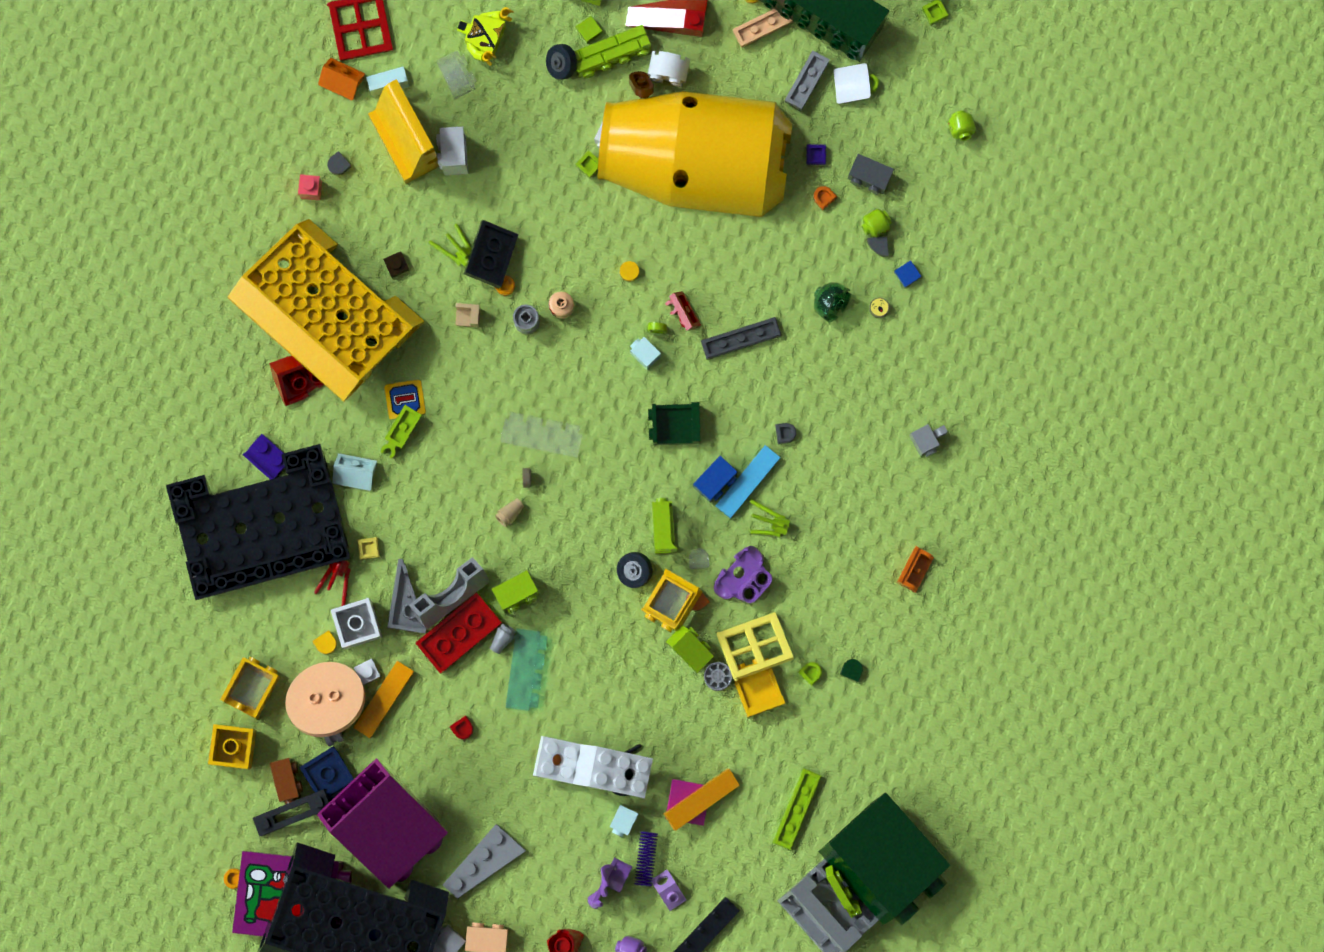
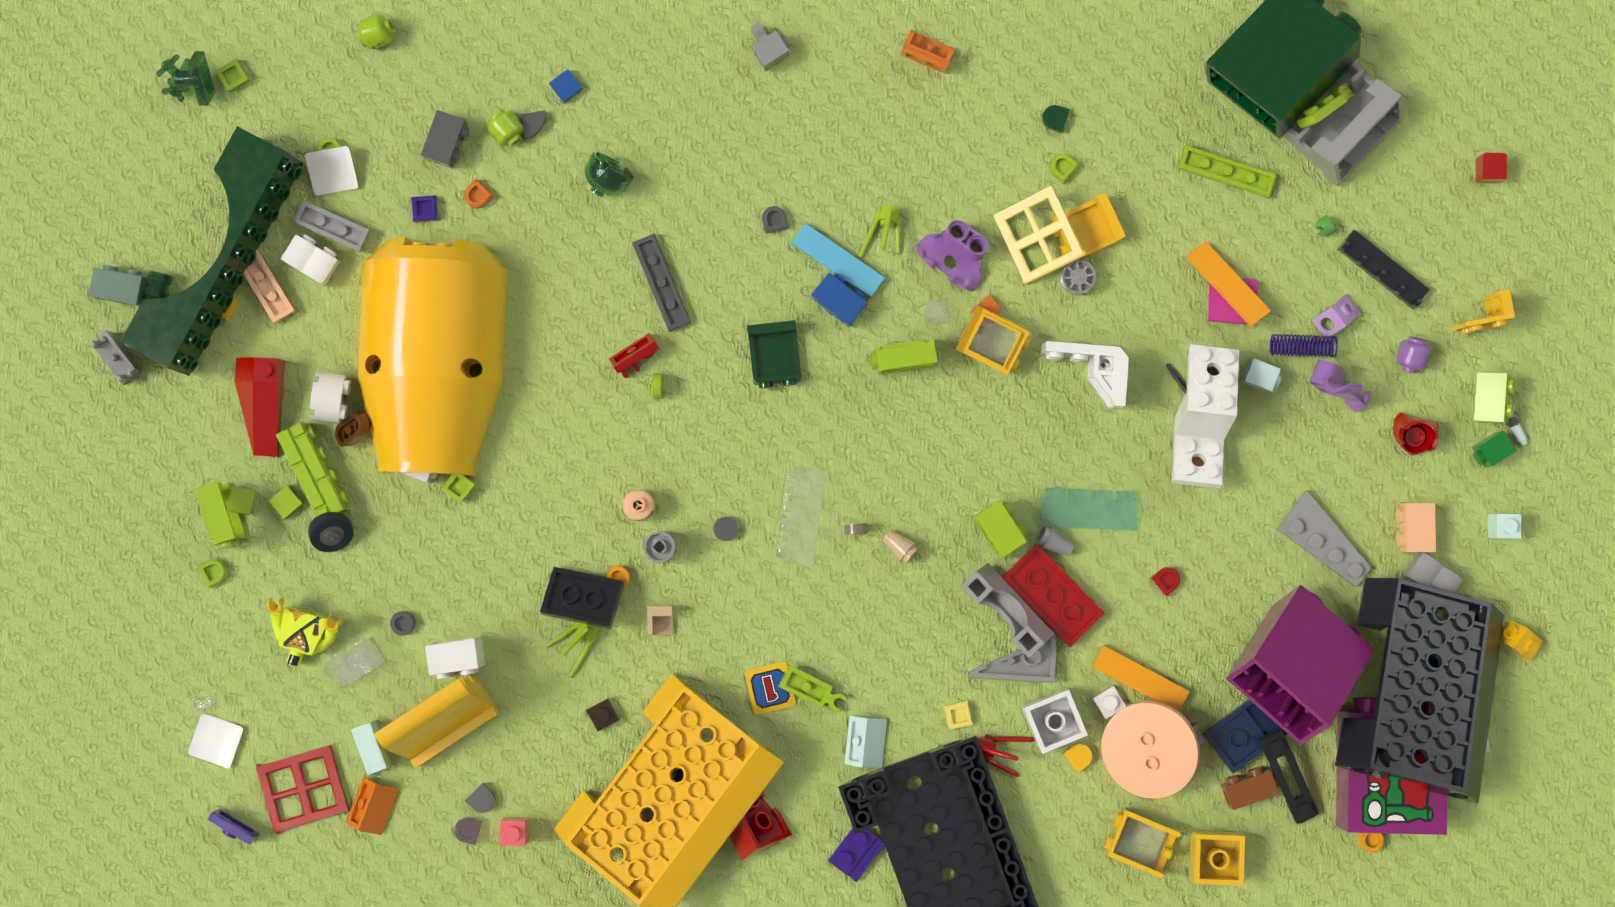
camera: 100 degrees left, 5 degrees up
(315, 152) = (468, 830): none -> tile
(484, 113) = (402, 623): none -> dark grey tile
(536, 373) = (725, 528): none -> dark grey tile
(629, 271) = (588, 426): yellow tile -> none
(629, 693) = (1107, 381): none -> white bracket
(634, 570) = (958, 388): black wheel -> none
(644, 352) = (689, 398): light aqua brick -> none
(689, 648) = (1050, 312): lime brick -> none
(744, 887) = (1326, 225): none -> bright green hinge
(781, 61) = (310, 259): none -> white brick
(879, 307) = (610, 117): light yellow tile -> none

